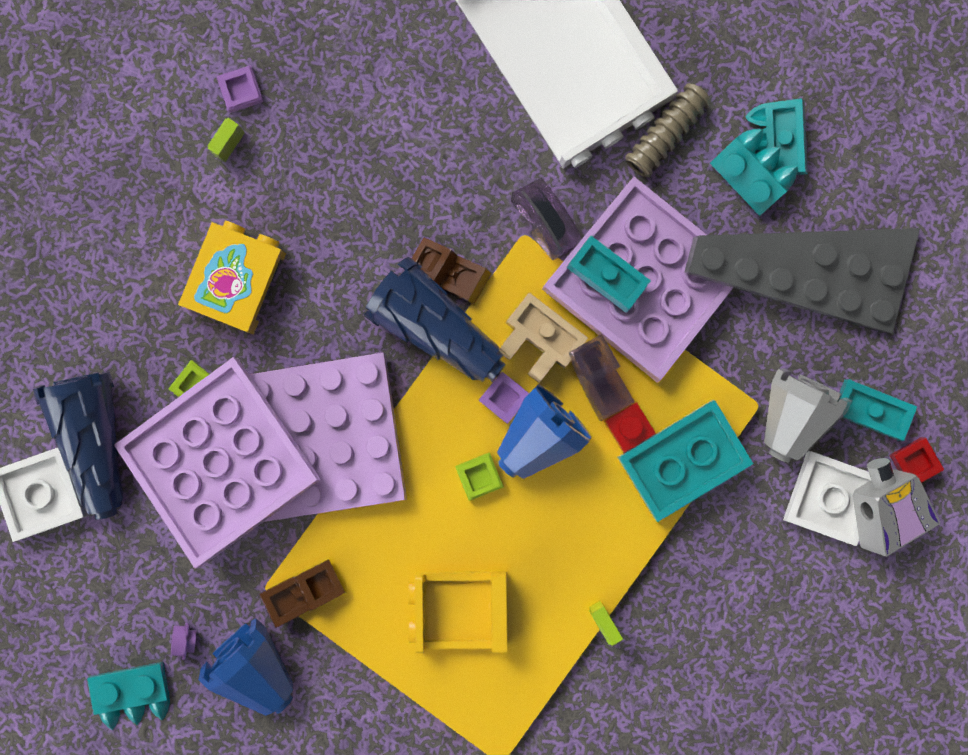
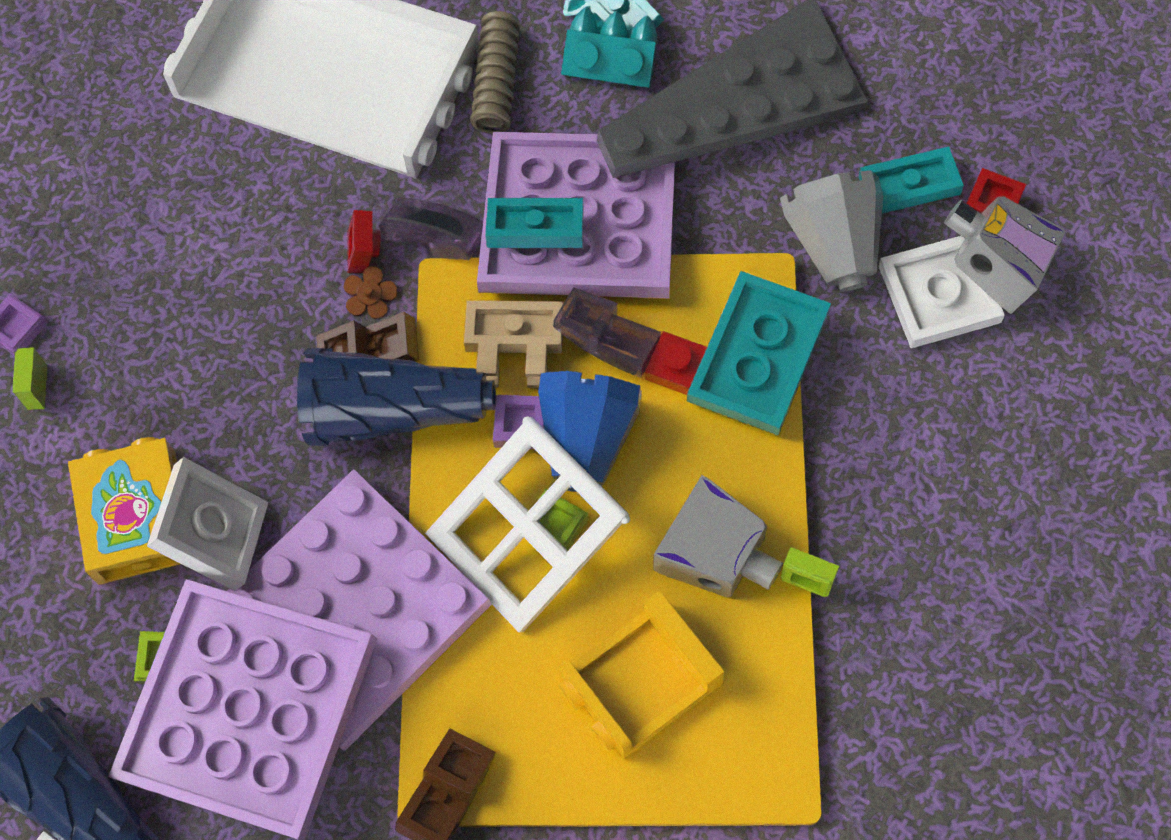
camera: 25 degrees left, 20 degrees down
(270, 328) = (208, 524): none -> white plate
(459, 472) = (526, 524): none -> white window
(476, 231) = (369, 293): none -> dark orange plant
(494, 195) = (362, 241): none -> red plate
(564, 565) = (715, 543): none -> light grey torso

